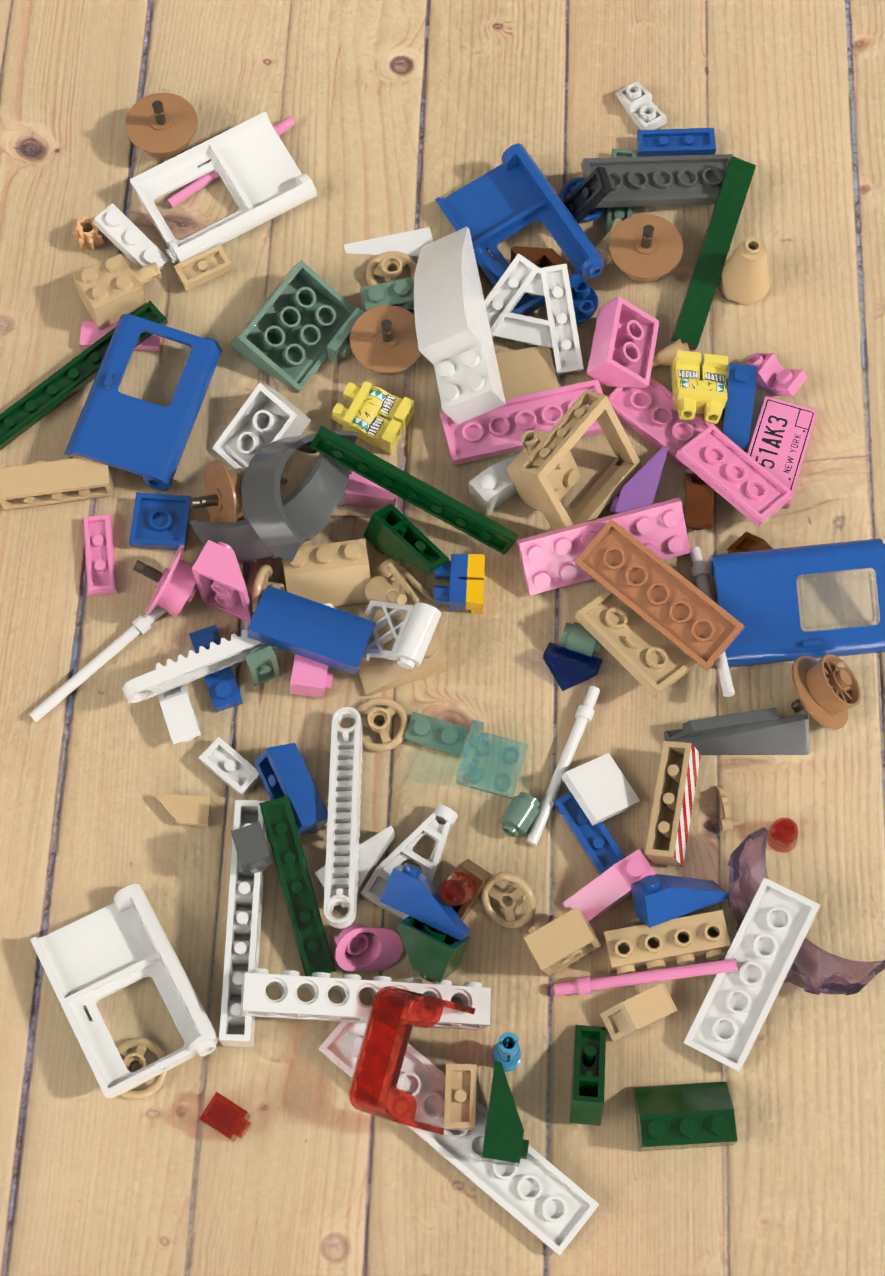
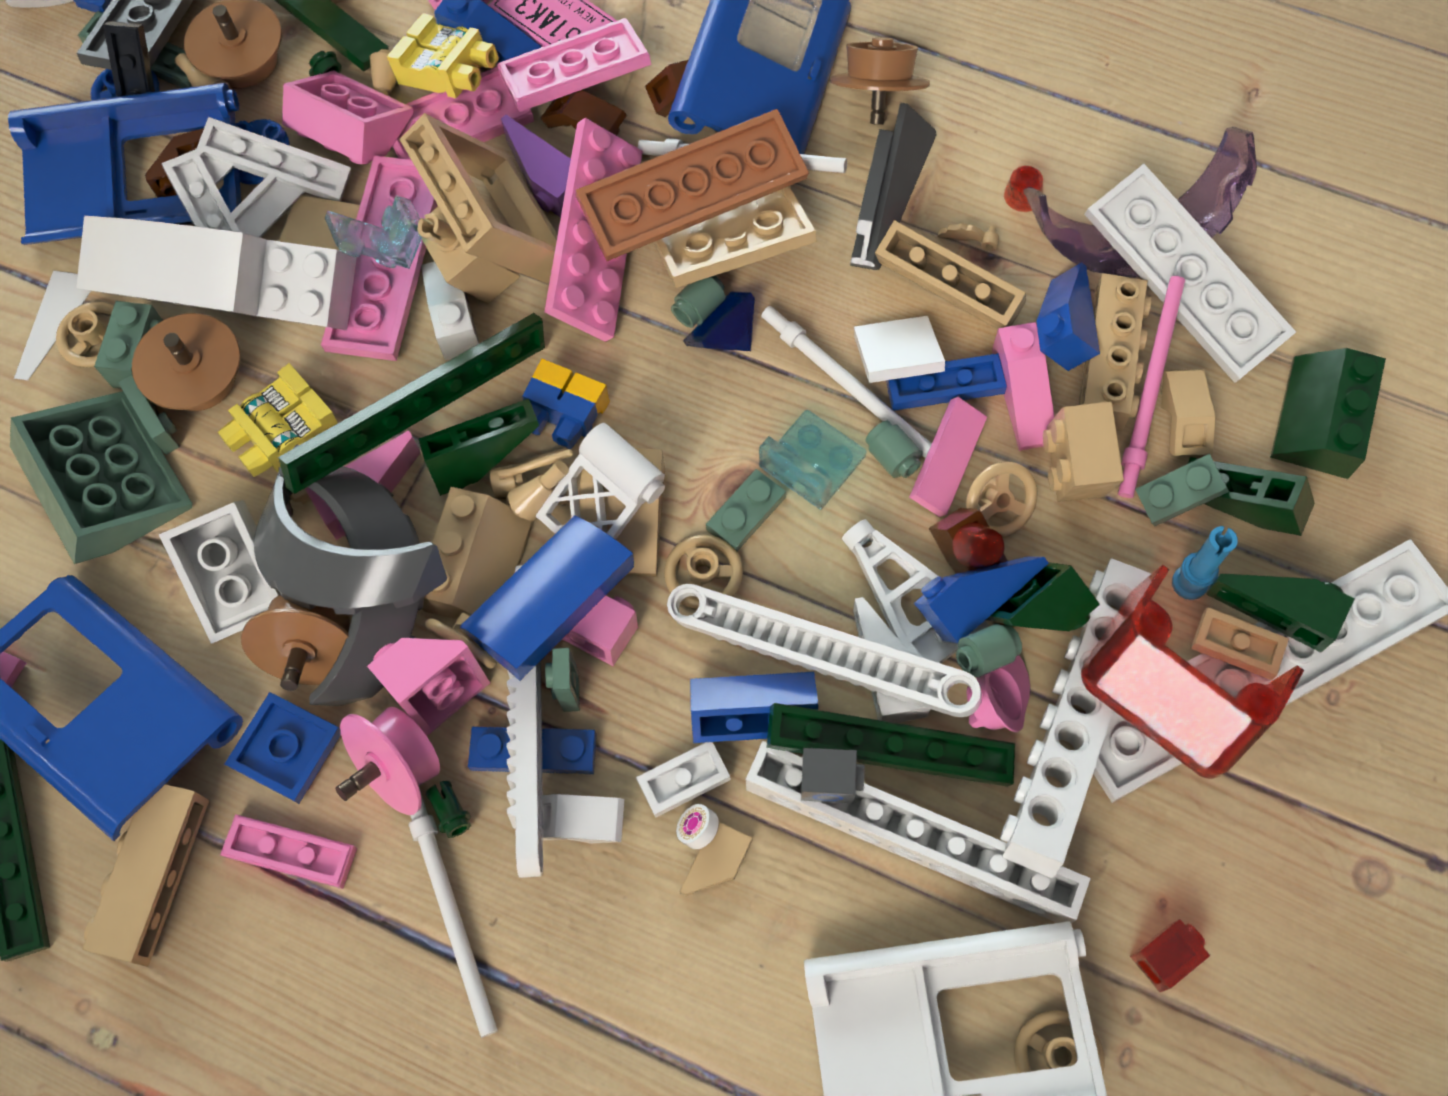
camera: 65 degrees left, 0 degrees up
(157, 634) = (449, 811): none -> dark green pin
(201, 787) = (697, 826): none -> white tile
(380, 921) = (988, 649): none -> sand green brick
(520, 409) = (389, 245): none -> clear light blue bracket
(531, 854) = (948, 457): none -> bright pink tile
(570, 1025) = (1181, 490): none -> sand green plate
(660, 312) = (324, 63): none -> dark green plate

